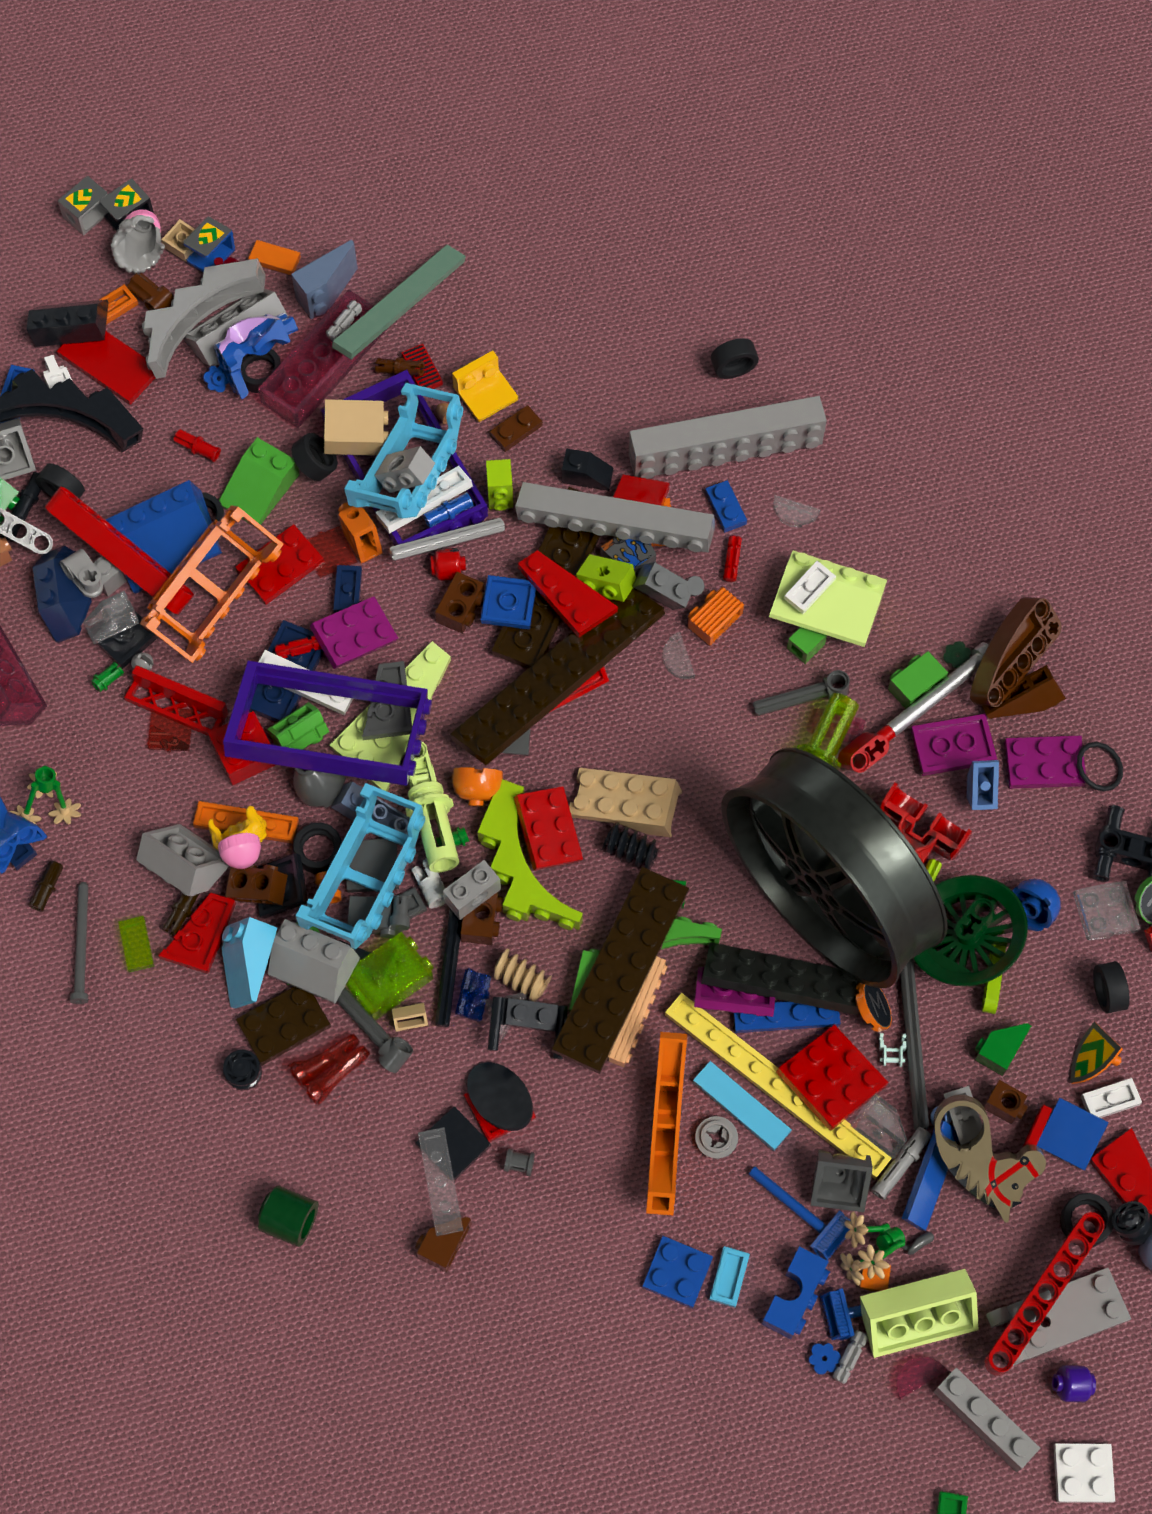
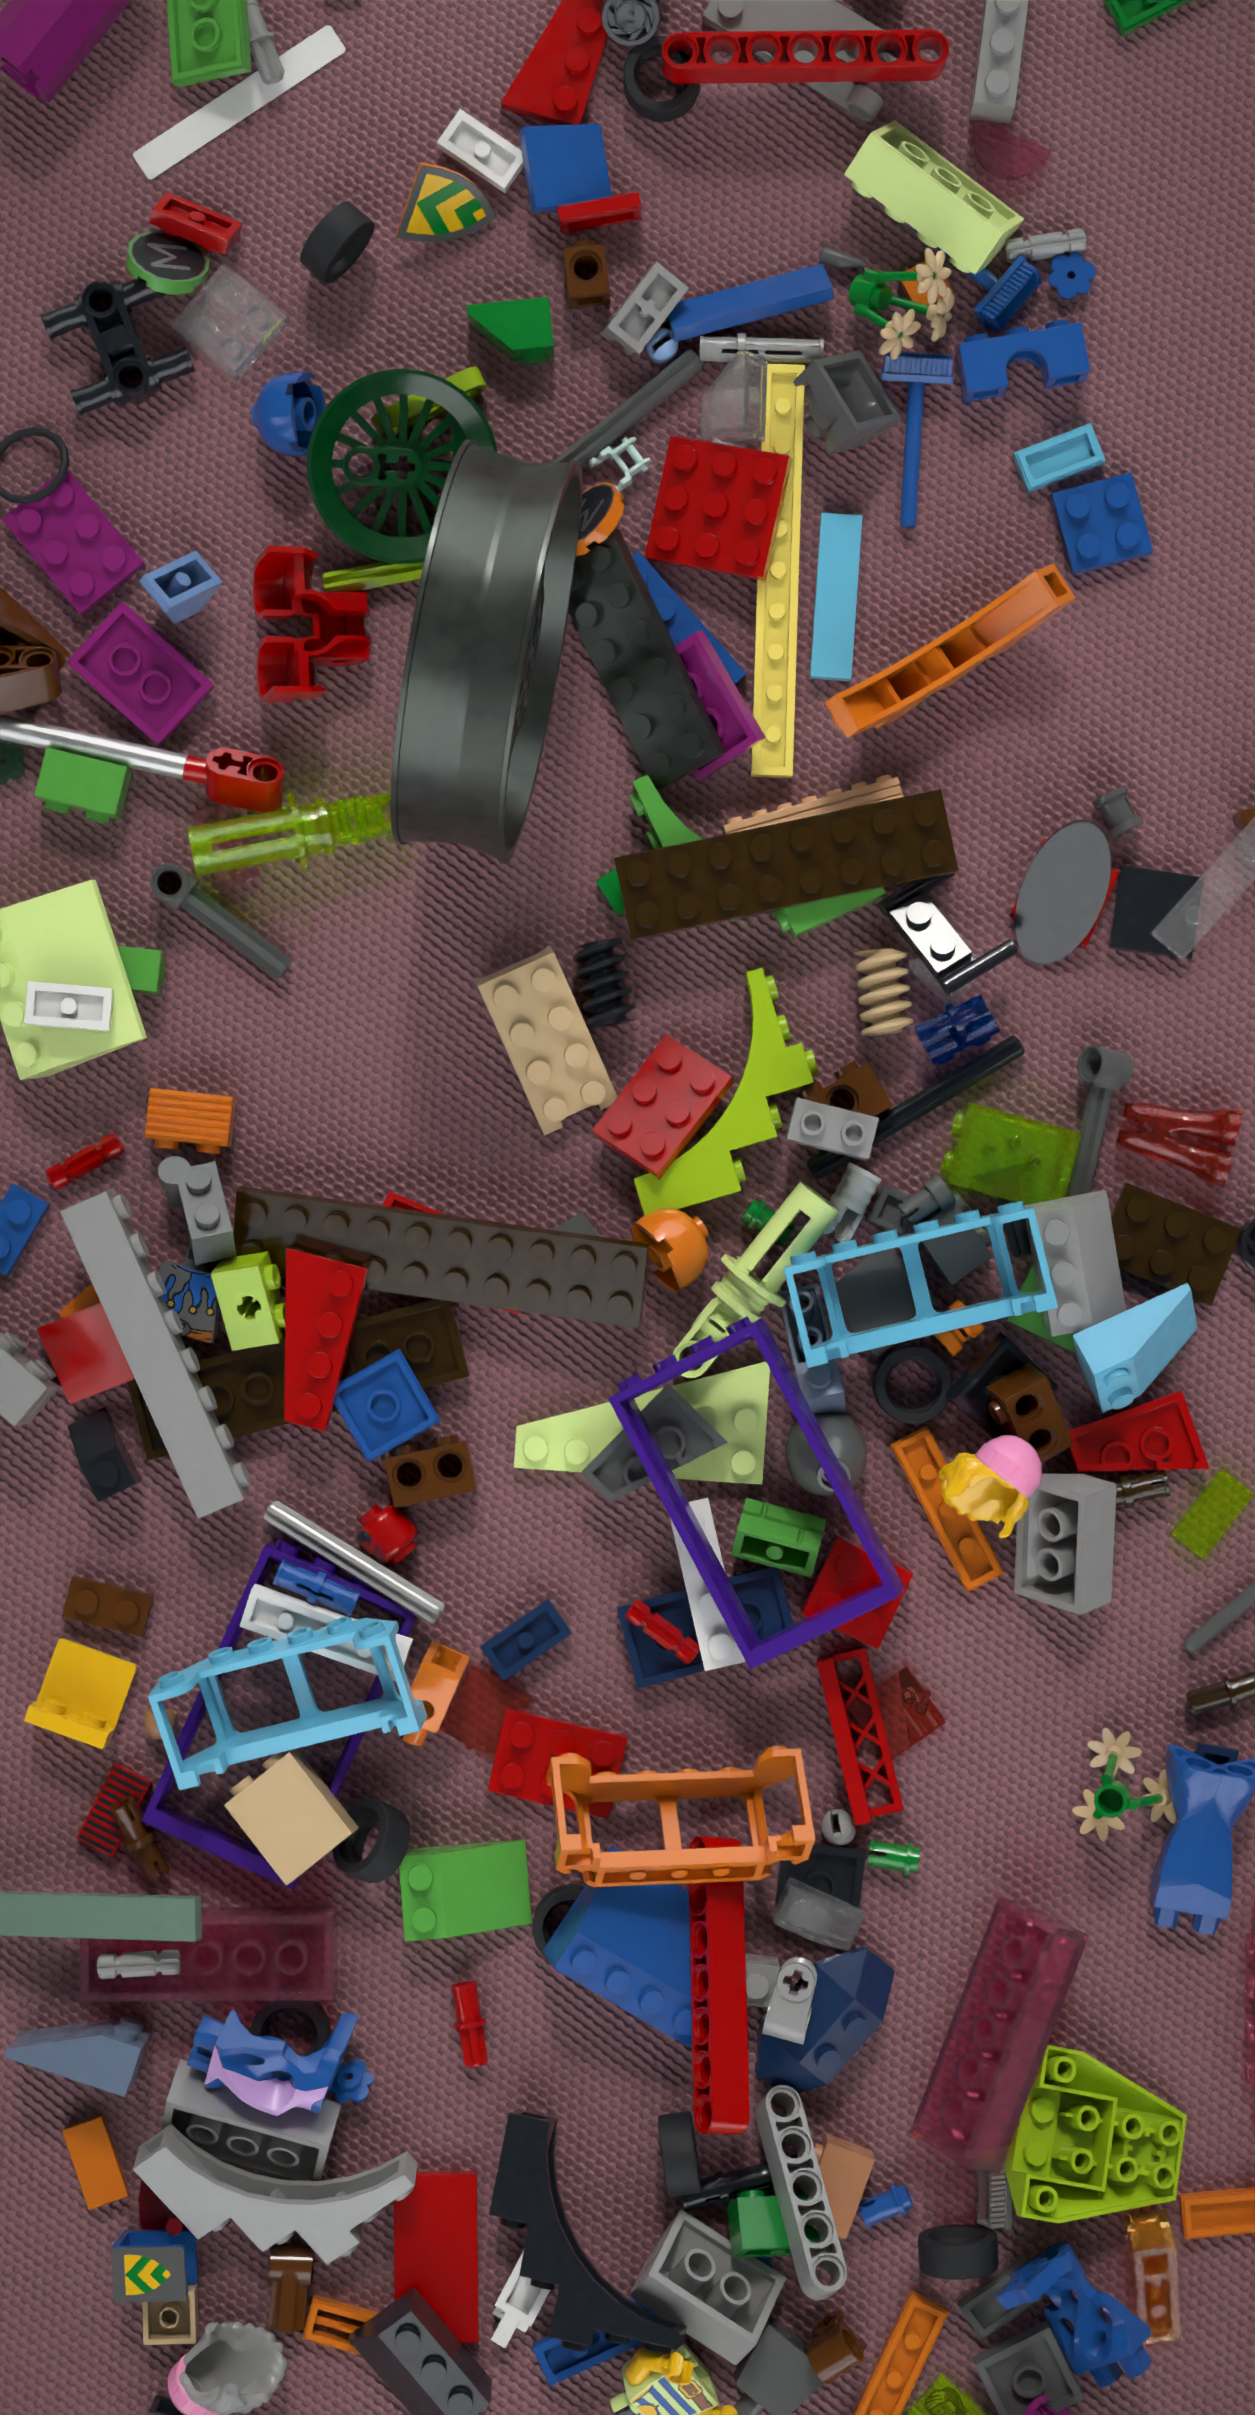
camera: 125 degrees left, 20 degrees up
(353, 632) = (586, 1576): magenta plate -> none
(404, 469) = (316, 1682): light grey brick -> none
(409, 1012) = (1042, 1089): tan piece -> none
(499, 484) = (221, 1551): lime brick -> none
(676, 658) = (288, 1128): clear tile -> none
(712, 1126) = (912, 582): light grey gear -> none
(988, 1176) = (702, 248): dark tan animal -> none

